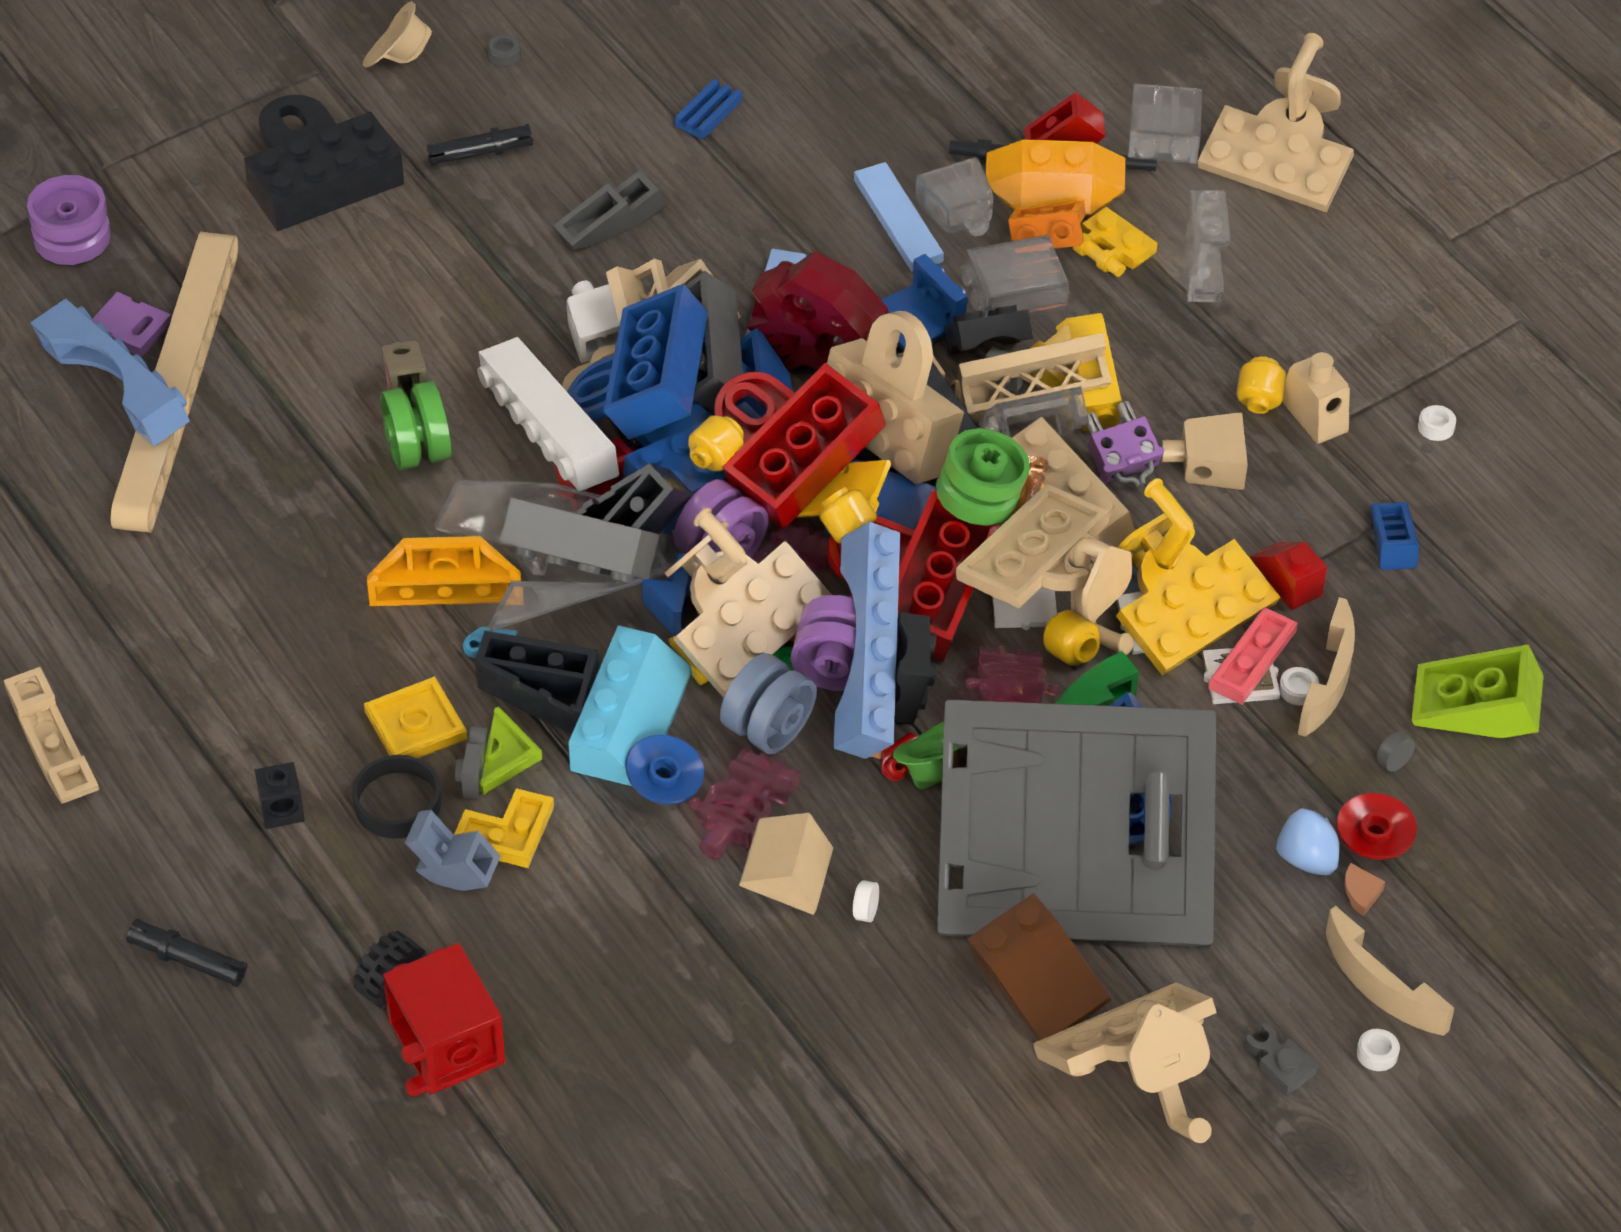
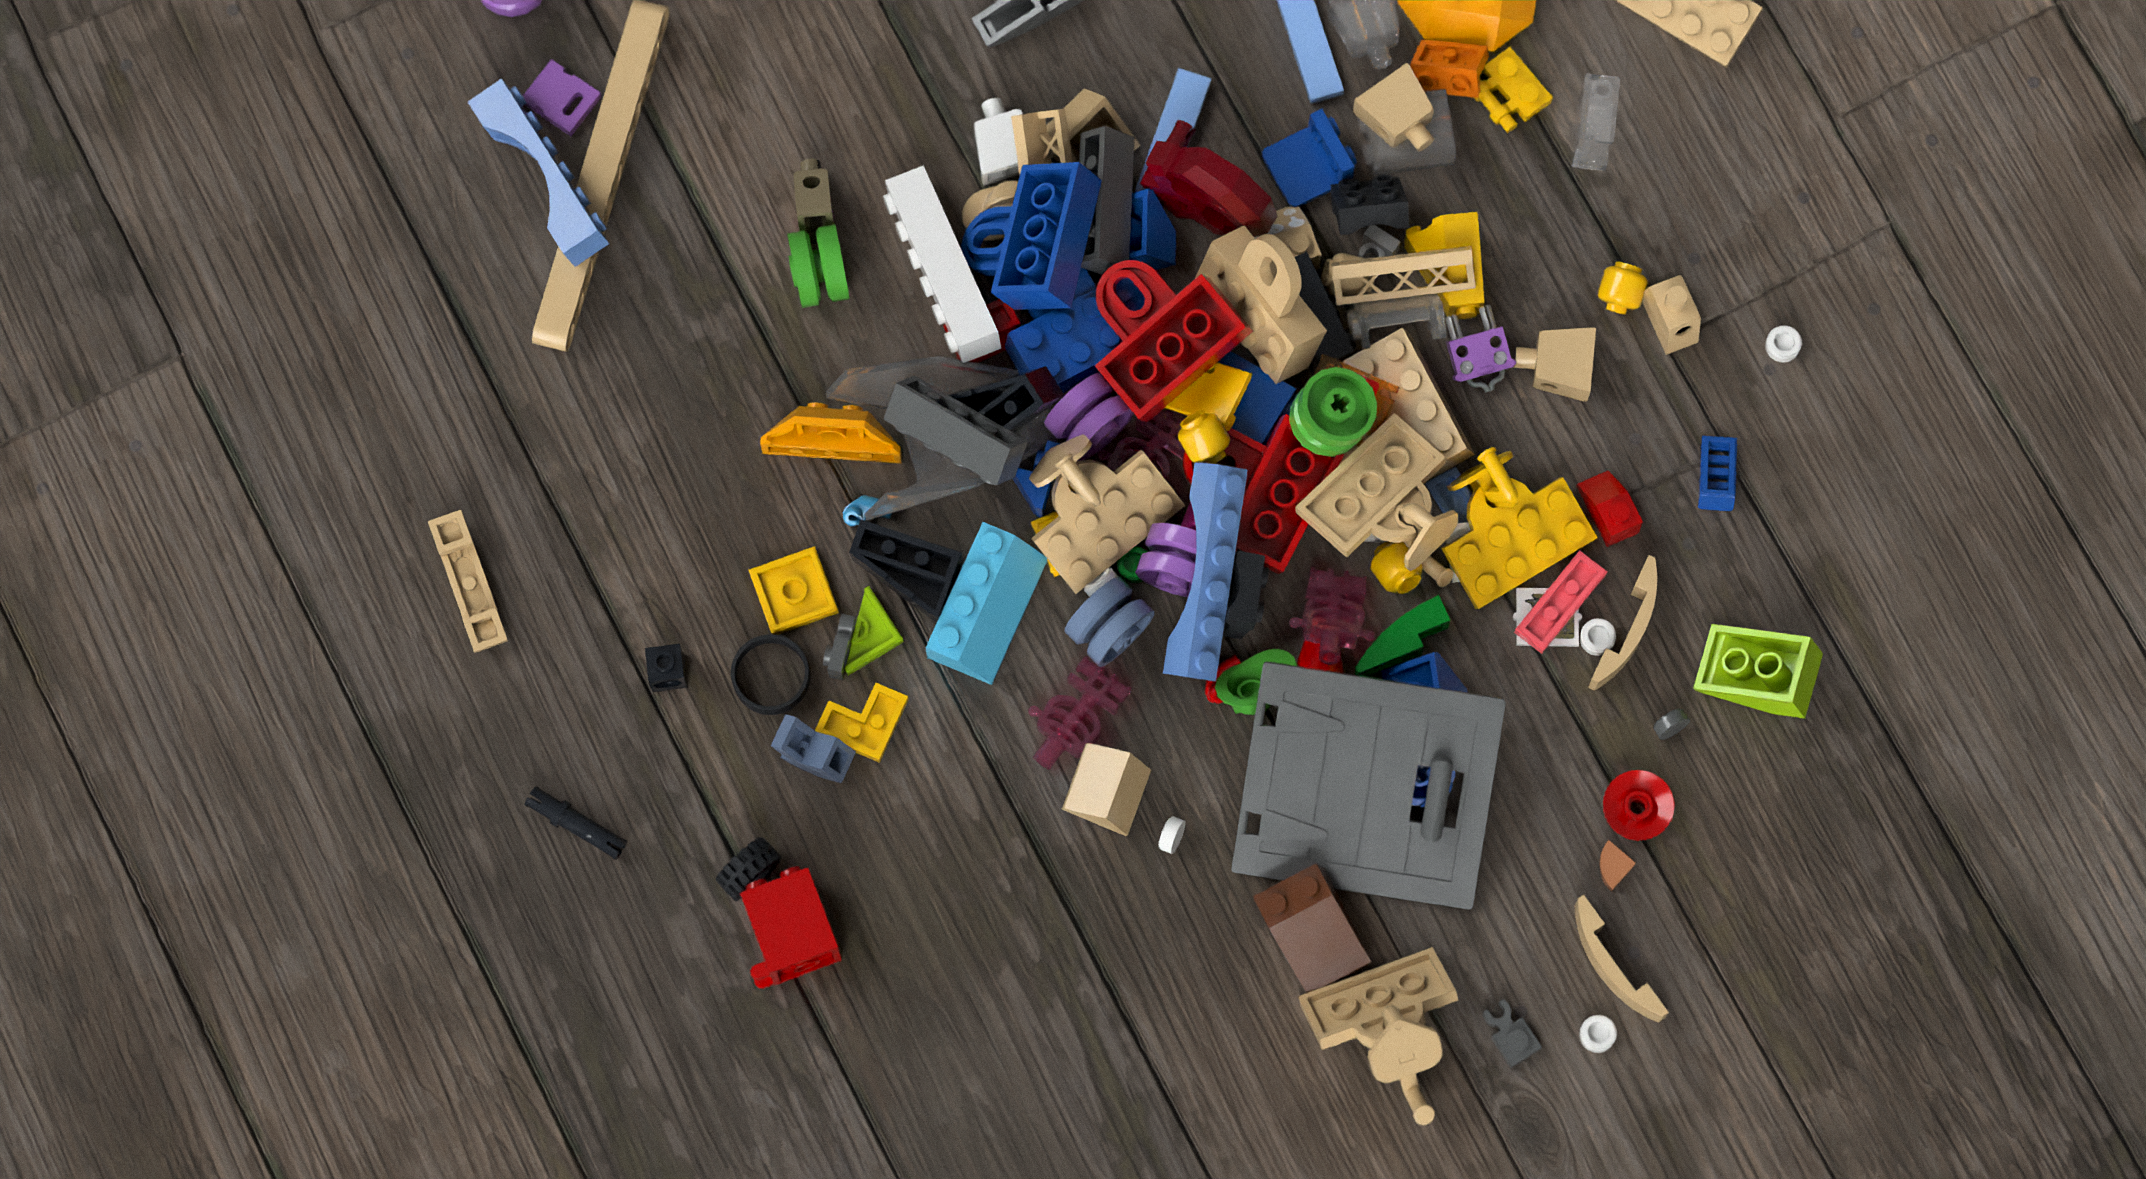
camera: 10 degrees right, 25 degrees up
(668, 757) = (1027, 673): blue dish -> none
(715, 442) = (1092, 338): yellow head -> none
(1002, 246) = (1397, 109): none -> tan torso
(1309, 843) = (1574, 819): light blue piece -> none

